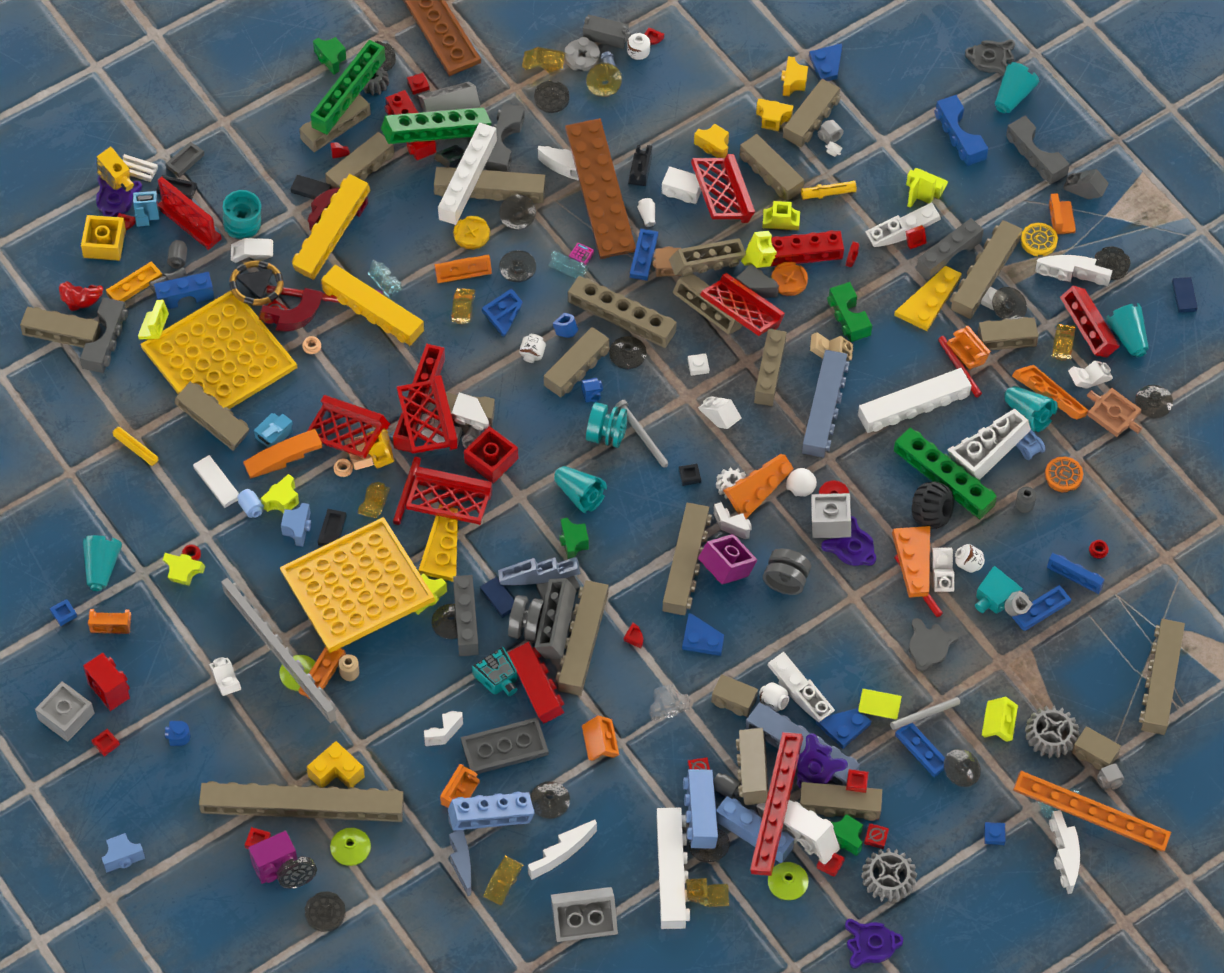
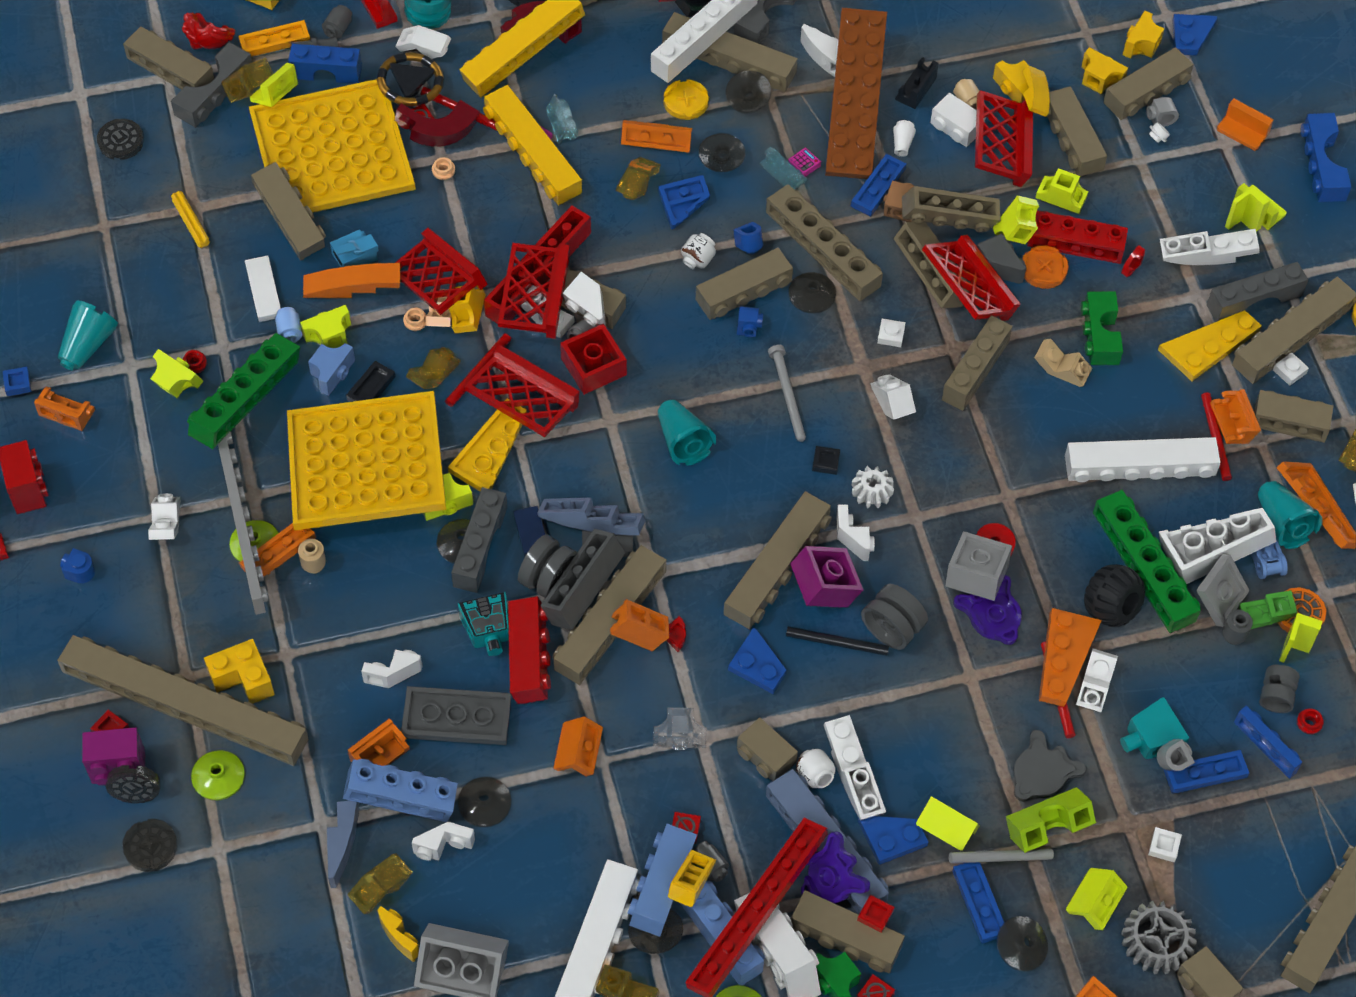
camera: 20 degrees right, 0 degrees up
(50, 400) = (120, 139): none -> clear smoke tile
(129, 321) = (243, 81): none -> clear yellow slope
(243, 563) = (243, 390): none -> green brick
(524, 906) = (393, 927): none -> yellow slope
(526, 841) = (431, 843): none -> white slope
(567, 845) = (482, 866): white slope -> none
(573, 537) = (650, 490): green brick -> none
(606, 425) = (746, 367): teal wheel -> none
(610, 638) = (640, 625): none -> orange hinge
(681, 161) = (967, 92): none -> tan brick
(722, 800) = (686, 892): none -> yellow slope
(735, 148) = (1038, 92): none -> yellow slope
(751, 602) = (837, 640): none -> black bar
(753, 766) = (750, 847): brick -> none
(754, 489) = (894, 503): orange wing -> none
(801, 482) = (960, 513): white hair -> none
(824, 404) = (1027, 428): sand blue brick -> none
(828, 190) = (1124, 176): yellow pin -> none
(893, 123) = (1245, 125): none -> orange panel
(916, 237) = (1220, 264): red tile -> none
(958, 666) = (1067, 810): none -> lime arch
(969, 558) = (1135, 677): white head -> none
(1006, 476) = (1222, 589): none -> light grey plate
(1011, 298) = (1313, 373): clear smoke dish -> none
(1032, 667) = (1164, 844): none -> white plate
(1044, 479) = (1271, 610): none -> bright green slope
(1070, 533) = (1279, 688): none -> dark grey wheel
(1071, 491) = (1301, 635): none -> neon yellow panel

